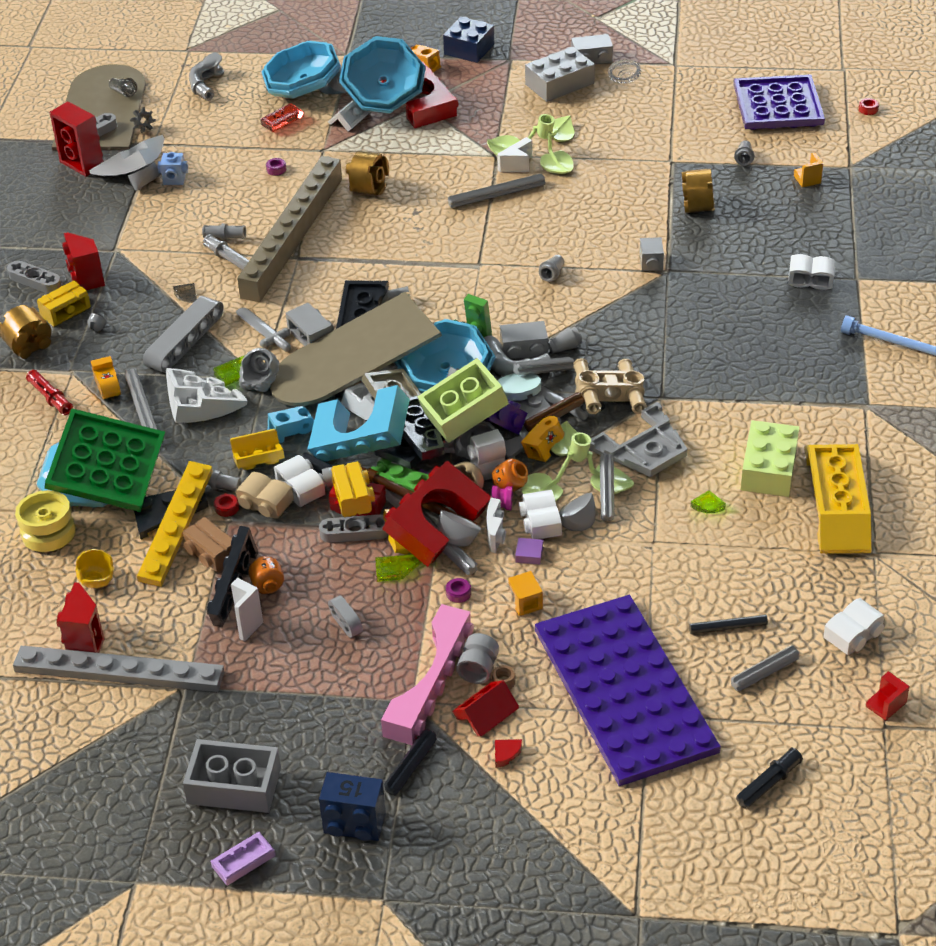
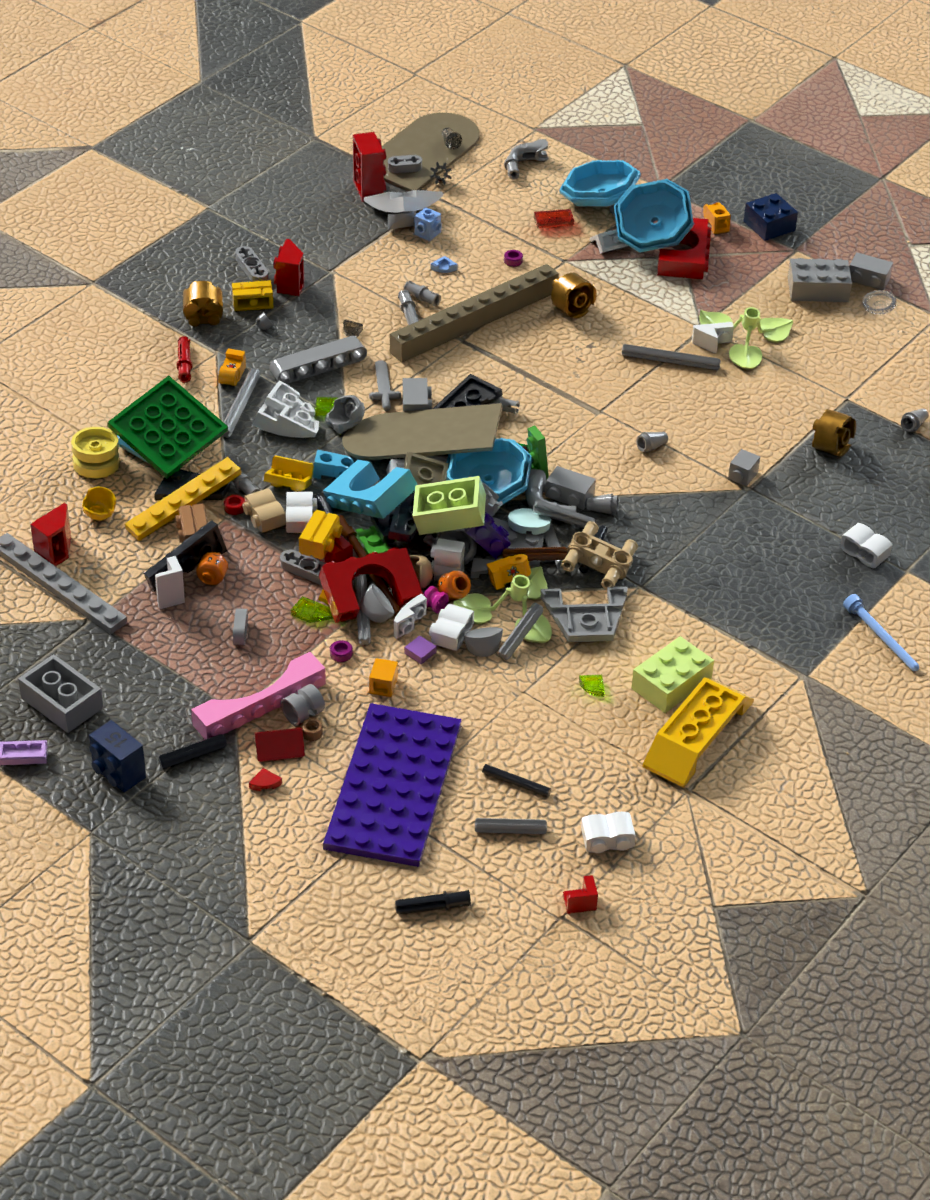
camera: 30 degrees right, 0 degrees up
(219, 199) = (444, 265): none -> light blue tile

